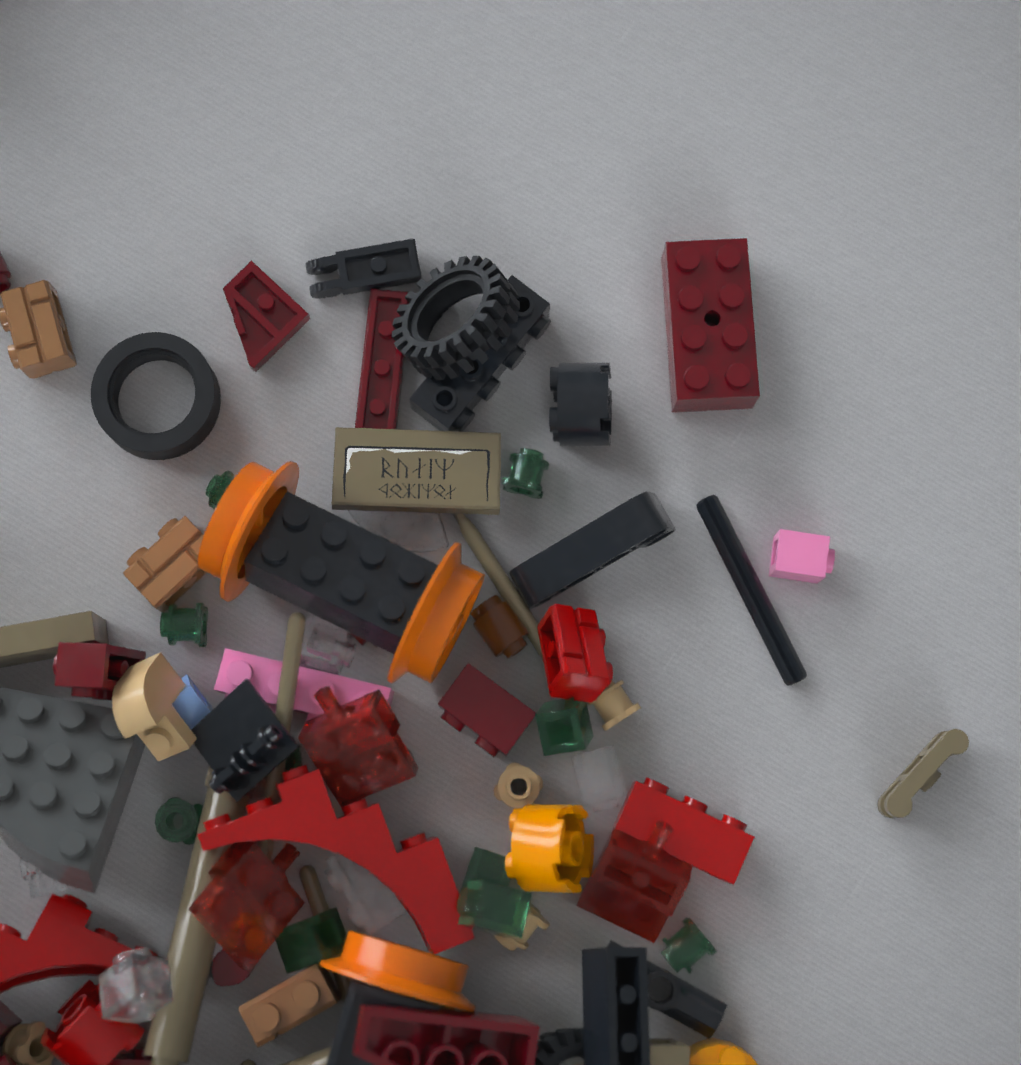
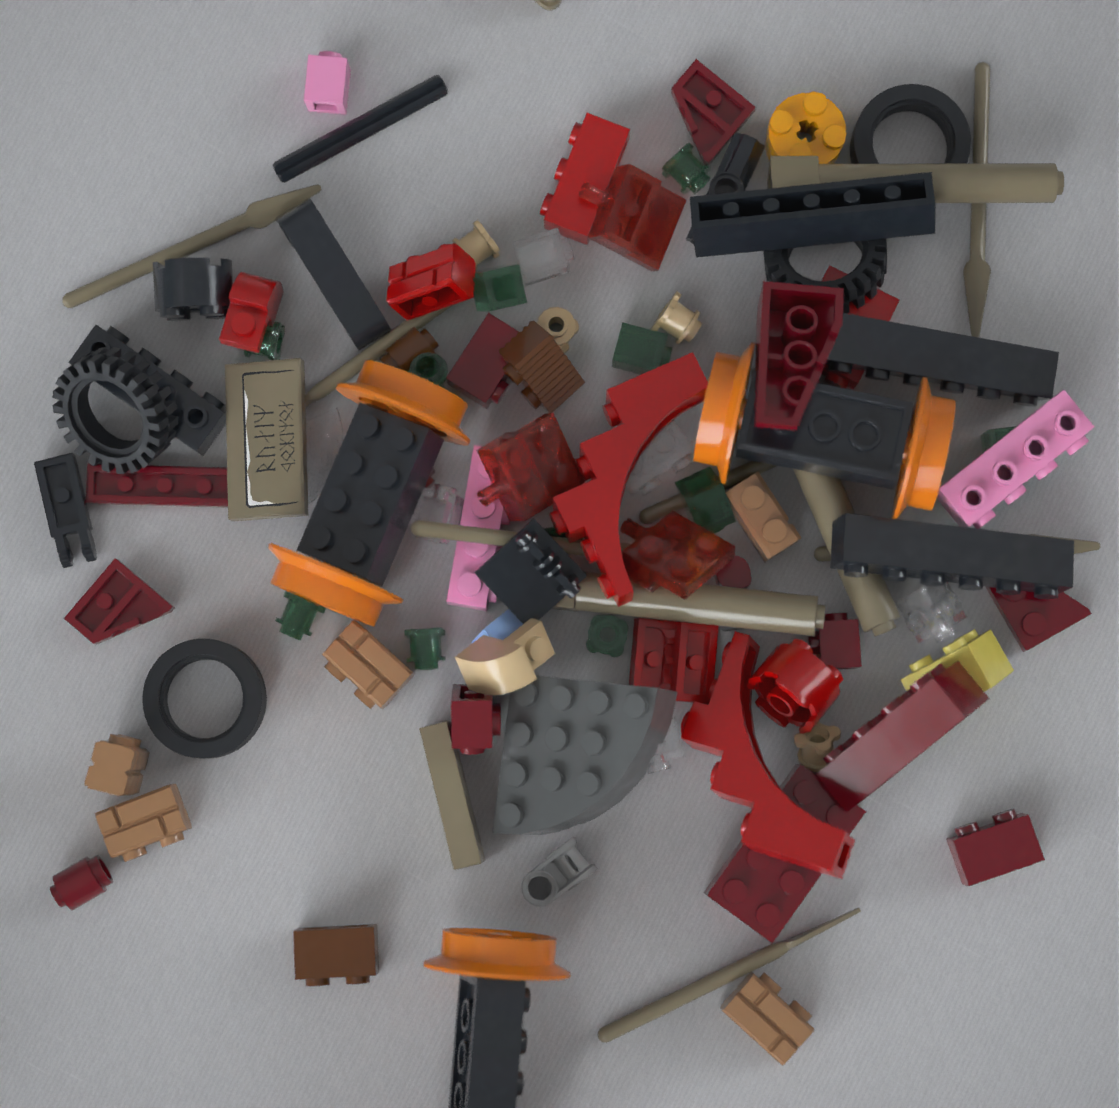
camera: 90 degrees left, 5 degrees up
(89, 303) = (117, 766): none -> medium nougat brick
(135, 986) = (756, 645): clear brick -> none
(142, 890) = (674, 657): none -> red slope
(470, 766) = (541, 367): none -> reddish brown brick
(480, 638) = (430, 367): none -> clear green cone
(493, 908) = (665, 334): clear green brick -> none
(549, 848) = (609, 292): light orange brick -> none
(561, 463) = (251, 308): none -> red brick
(661, 477) = (257, 215): none -> dark tan piece
(707, 363) = (145, 178): dark red brick -> none
(755, 977) = (709, 109): none -> dark red wing

